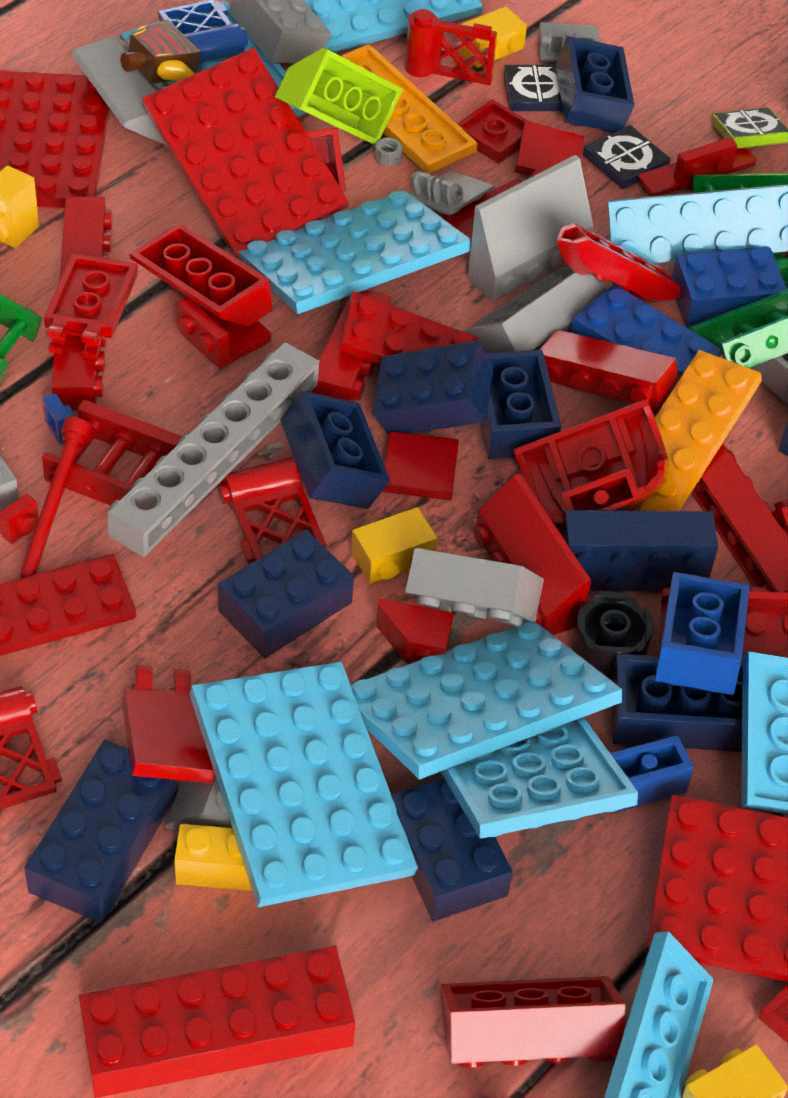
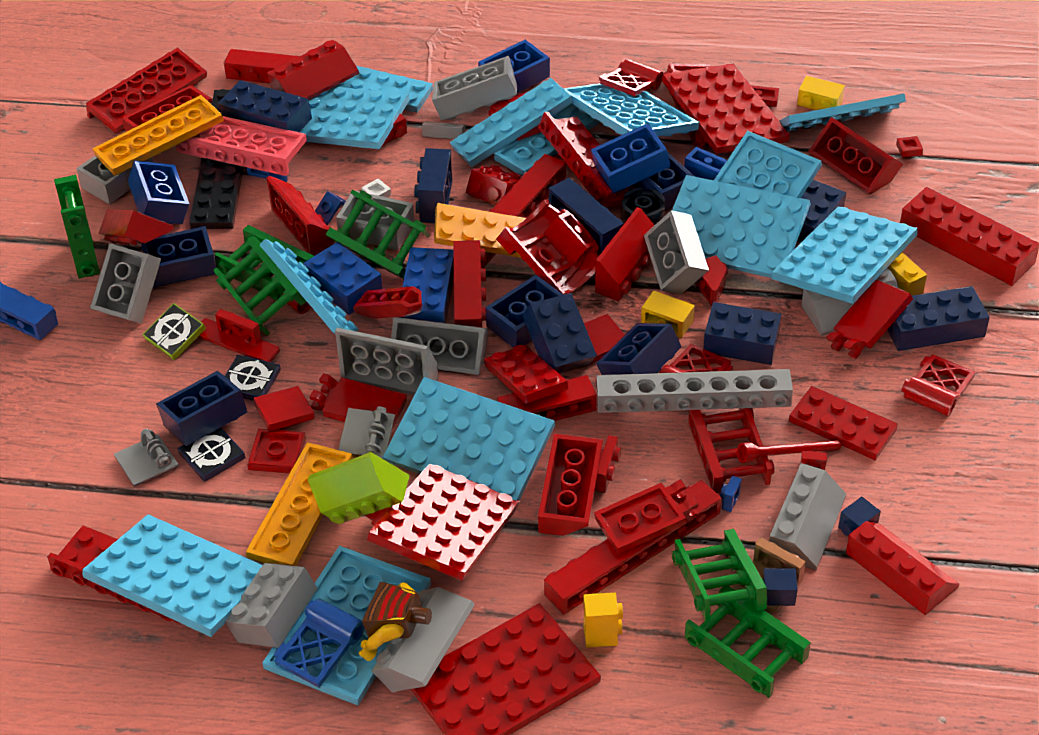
camera: 120 degrees left, 5 degrees down
(426, 42) = (229, 502): red piece -> none
(510, 34) = (178, 495): yellow brick -> none

